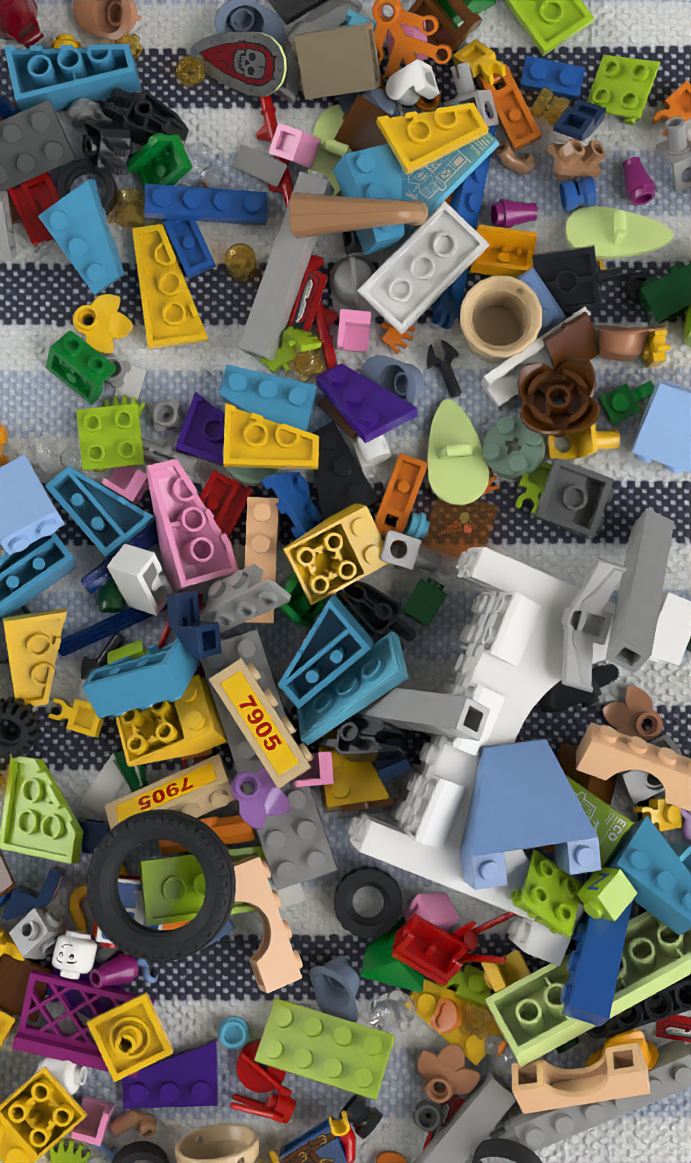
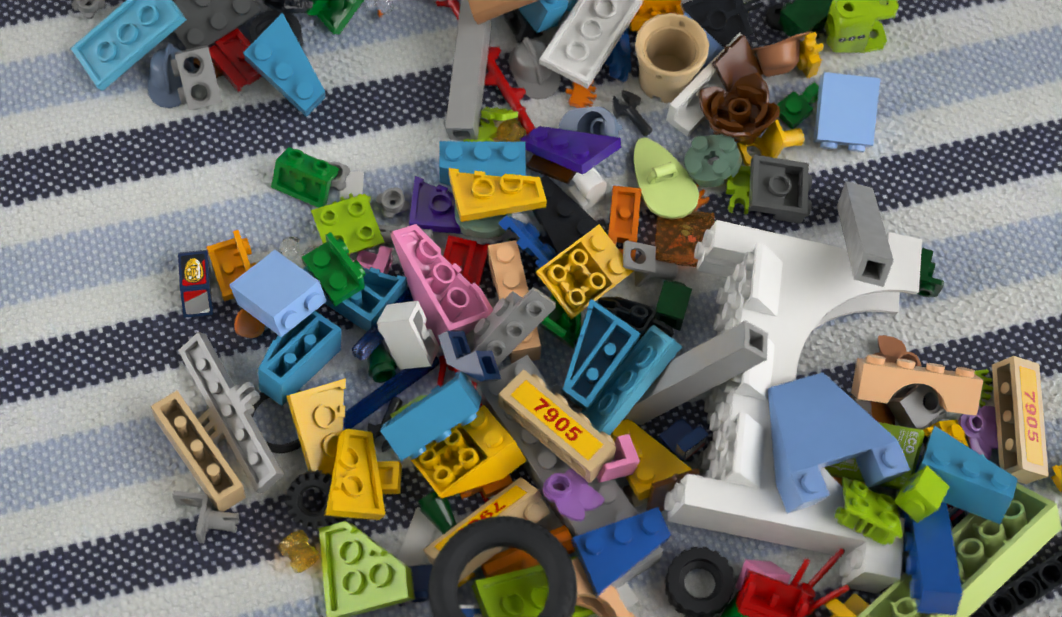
camera: 20 degrees left, 20 degrees down
(53, 720) = (356, 478): none -> yellow wing
(78, 493) = (335, 269): none -> green bracket
(107, 323) = (318, 138): yellow plate -> none
(130, 208) = (319, 45): clear yellow wheel -> none
(165, 298) = (365, 103): yellow wing -> none
(189, 246) = (377, 60): blue plate -> none
(205, 204) = (385, 25): blue plate -> none
(240, 255) = (428, 64): clear yellow wheel -> none
(291, 862) = (618, 547): none -> blue wing
(308, 300) = (495, 82): sticker -> none
(353, 330) = (543, 97): bright pink panel -> none
(362, 739) = (657, 421): black hinge -> none
(417, 526) = (647, 238): medium azure plate -> none
(563, 697) = (832, 344): black hinge -> none
(587, 623) = (828, 265): light grey plate -> none

